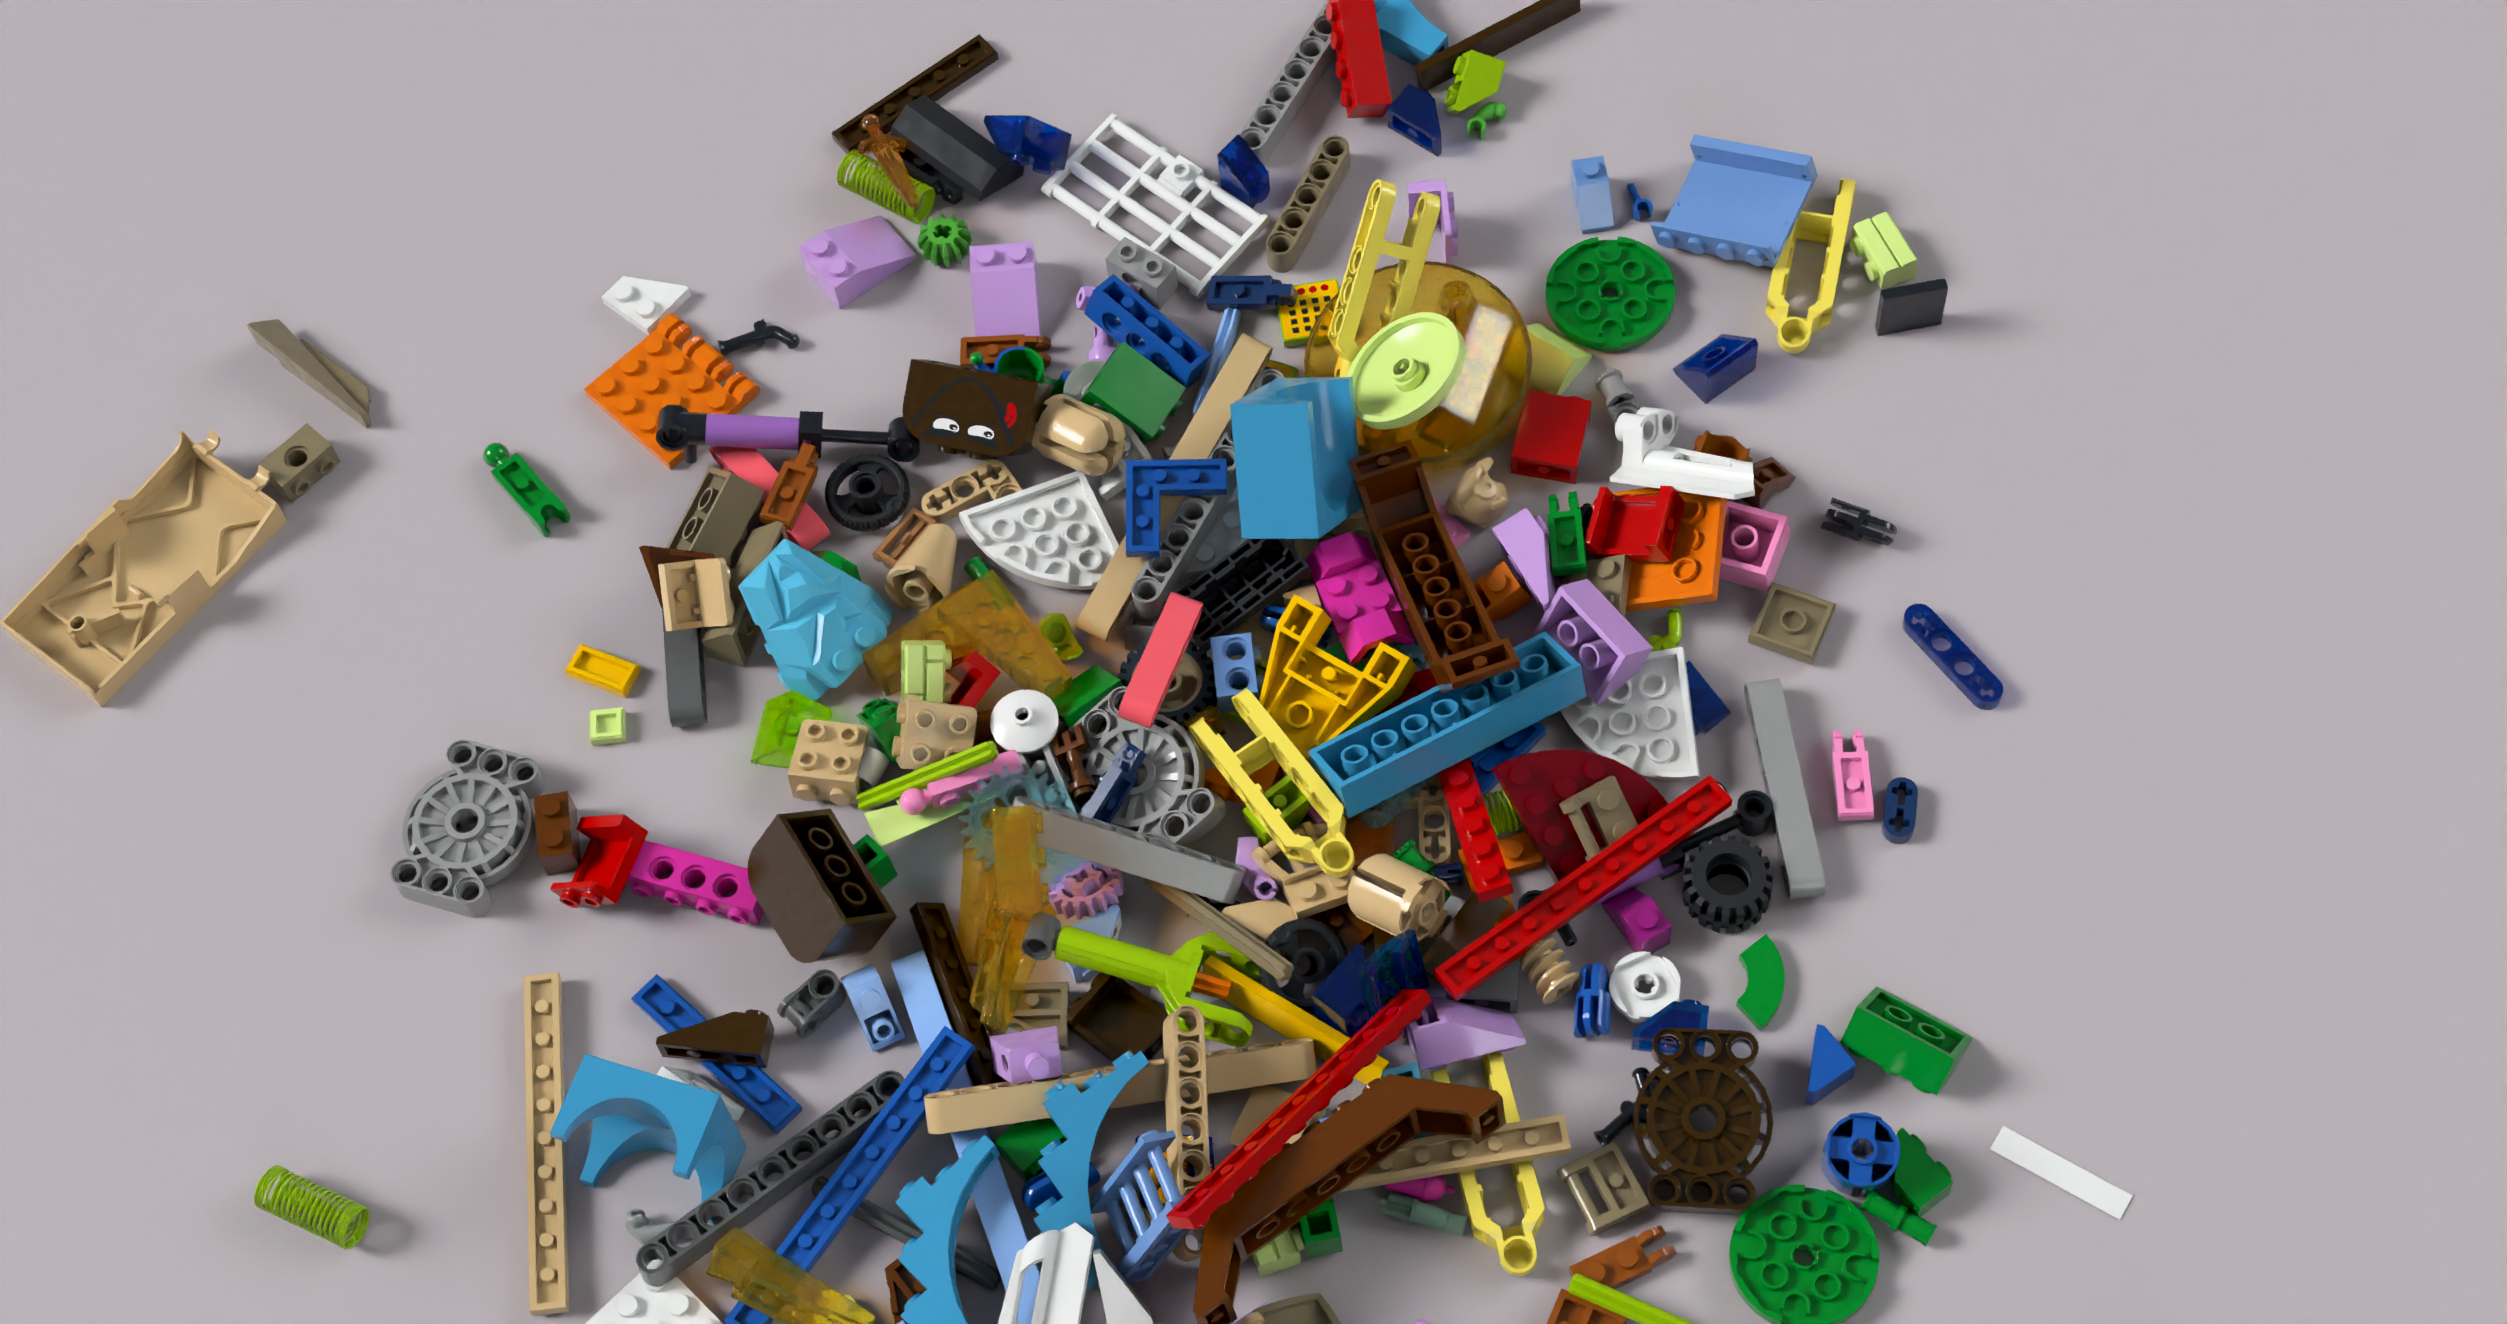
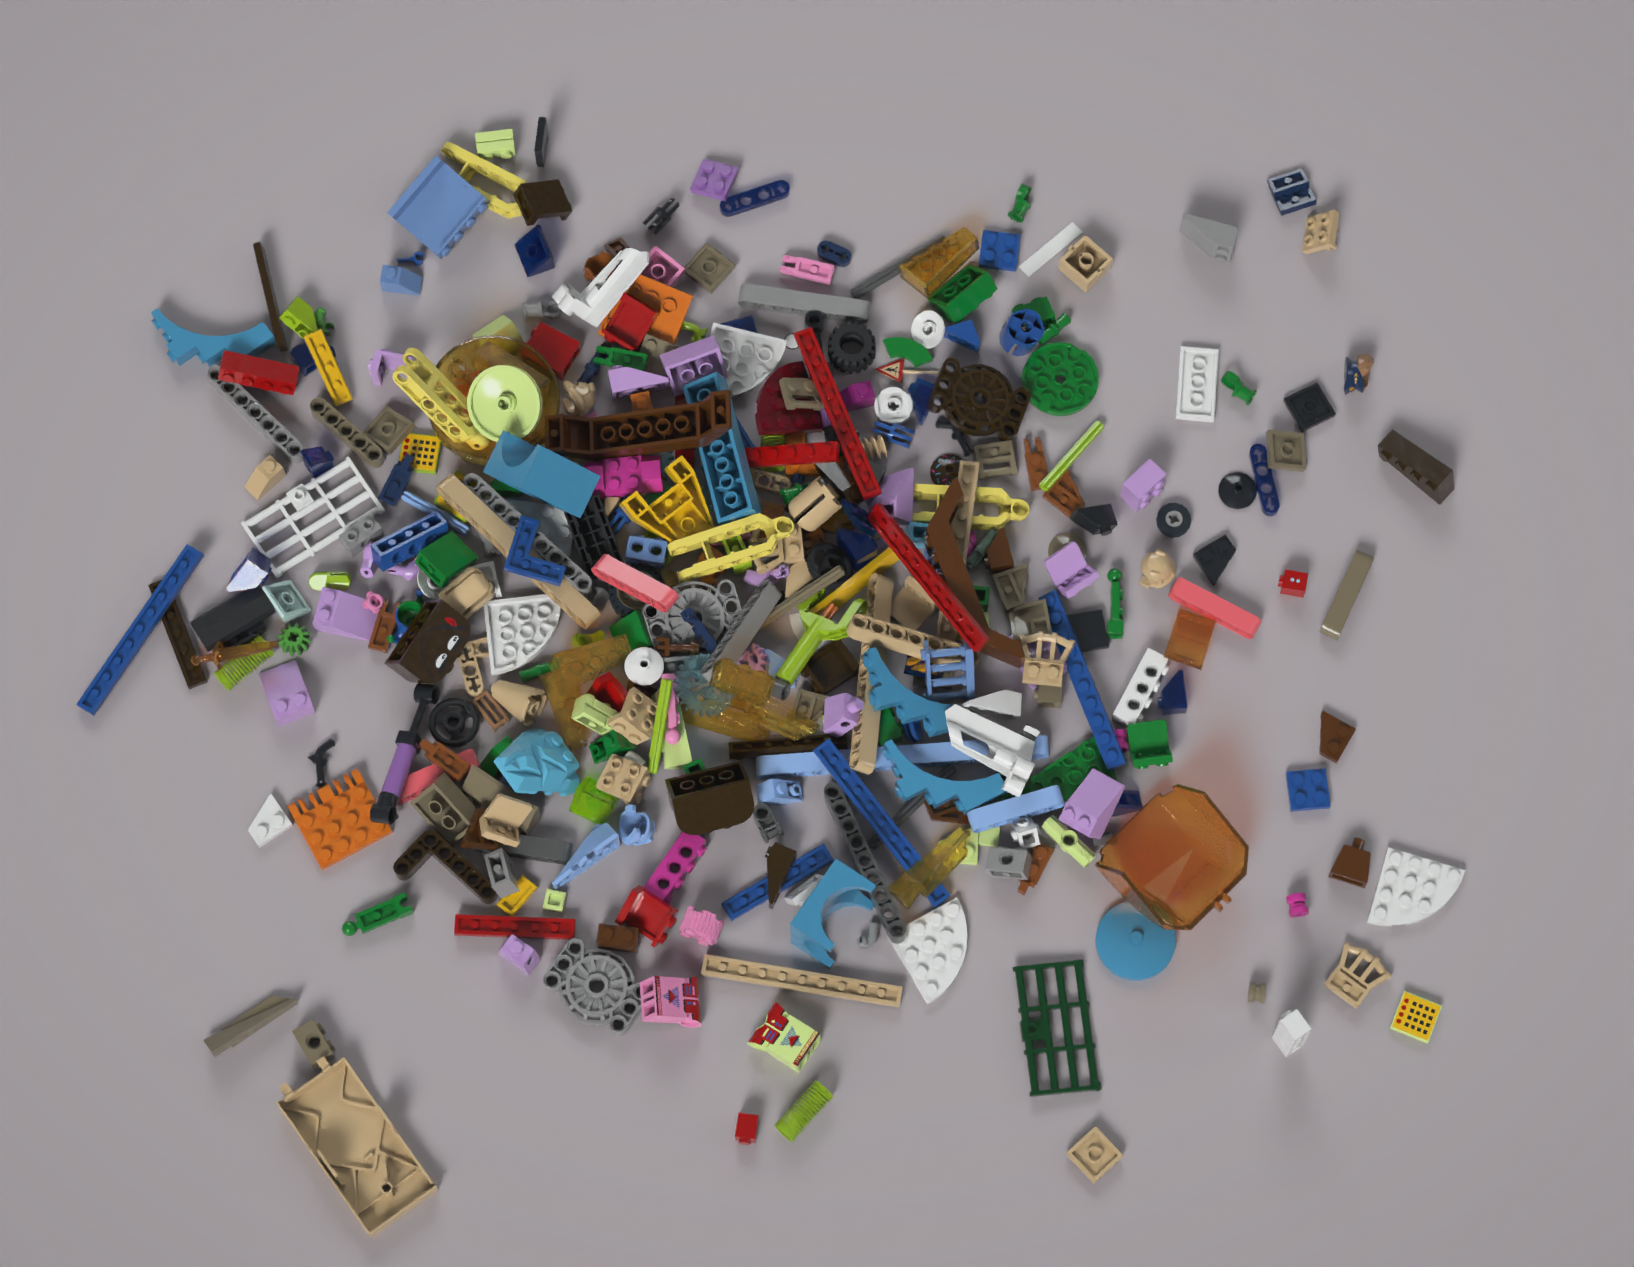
camera: 80 degrees left, 10 degrees up
(269, 1126) = (746, 1128): none -> red brick
(435, 1143) = (785, 1038): none -> piece
(460, 941) = (671, 1000): none -> bright pink piece
(499, 691) = (519, 953): none -> lavender torso
(547, 681) = (519, 926): none -> red plate
(598, 948) = (701, 926): none -> bright pink brick
(613, 581) = (449, 863): none -> dark brown beam
(624, 628) = (501, 873): none -> light grey brick
(701, 751) = (594, 848): none -> light blue wedge
(751, 803) = (635, 827): none -> light blue helmet
(903, 43) = (140, 630): none -> blue plate
(1001, 207) = (286, 601): none -> light aqua slope
(1027, 314) = (367, 604): none -> bright pink plate
(1055, 258) = (329, 579): none -> lime arm
(1200, 123) = (264, 477): none -> tan slope
(1323, 254) = (389, 429): none -> dark tan plate
(1367, 1286) = (1011, 586): none -> dark tan wing
(1404, 138) = (328, 368): none -> yellow tile
(1422, 1244) = (998, 554): none -> reddish brown slope
(1534, 502) = (591, 369): none -> dark blue pin
(1566, 1100) = (938, 469): none -> dark brown dish
(1609, 323) = (464, 274): green plate -> none
(1718, 973) = (895, 370): none -> piece
(1806, 340) = (542, 200): none -> dark brown panel
(1812, 1000) = (921, 329): none -> white dish
(1917, 923) = (890, 272): none -> dark grey axle
(1949, 982) = (940, 262): none -> clear yellow wedge
(1958, 583) = (714, 179): none -> medium lavender plate
(2019, 1082) = (999, 250): none -> blue plate
(2048, 1234) = (1085, 263): none -> tan brick
(2121, 1092) = (1021, 204): none -> green connector

